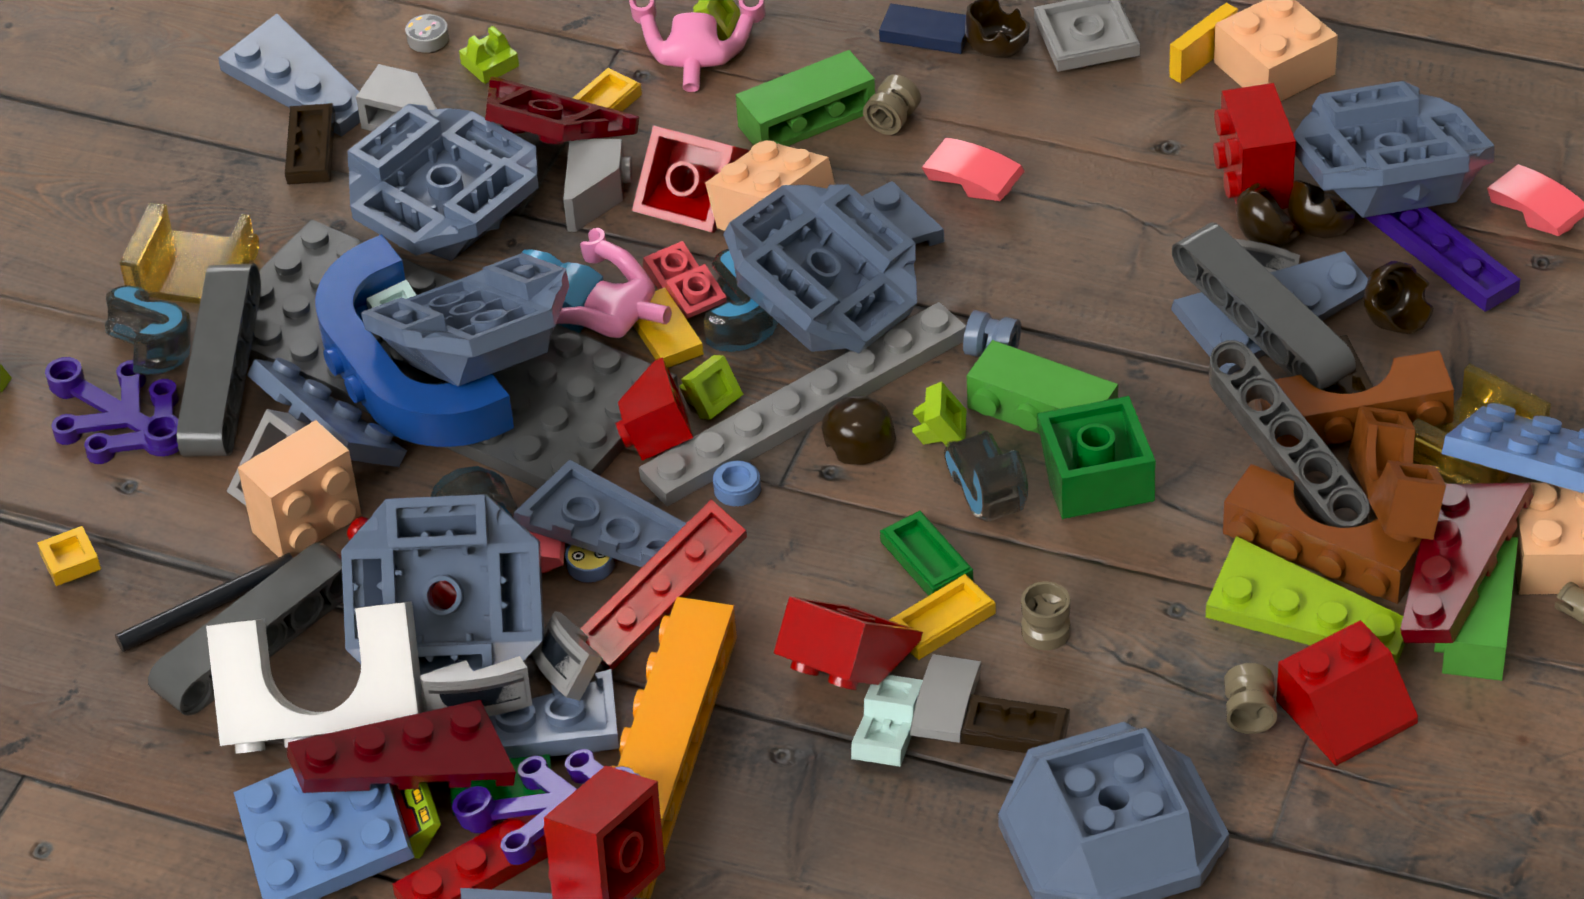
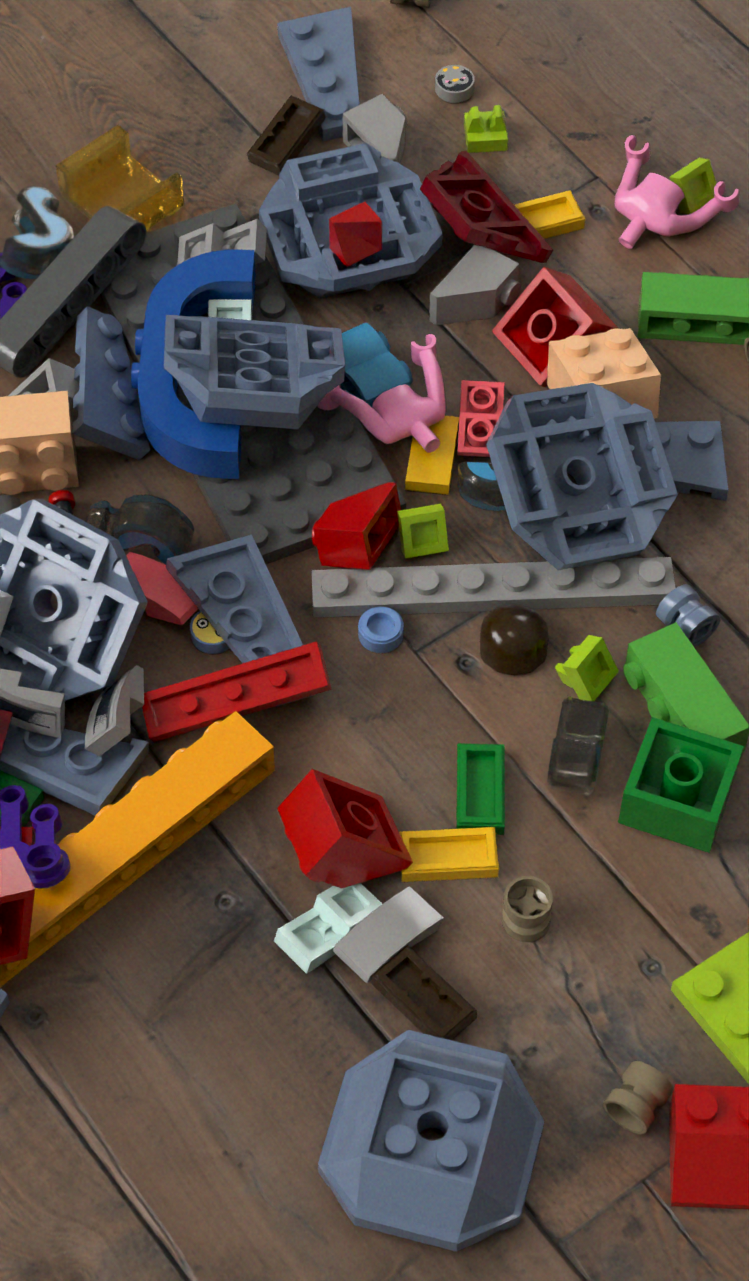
camera: 30 degrees right, 10 degrees up
(324, 252) = (210, 238): none -> light grey slope
(471, 173) = (355, 234): none -> red slope

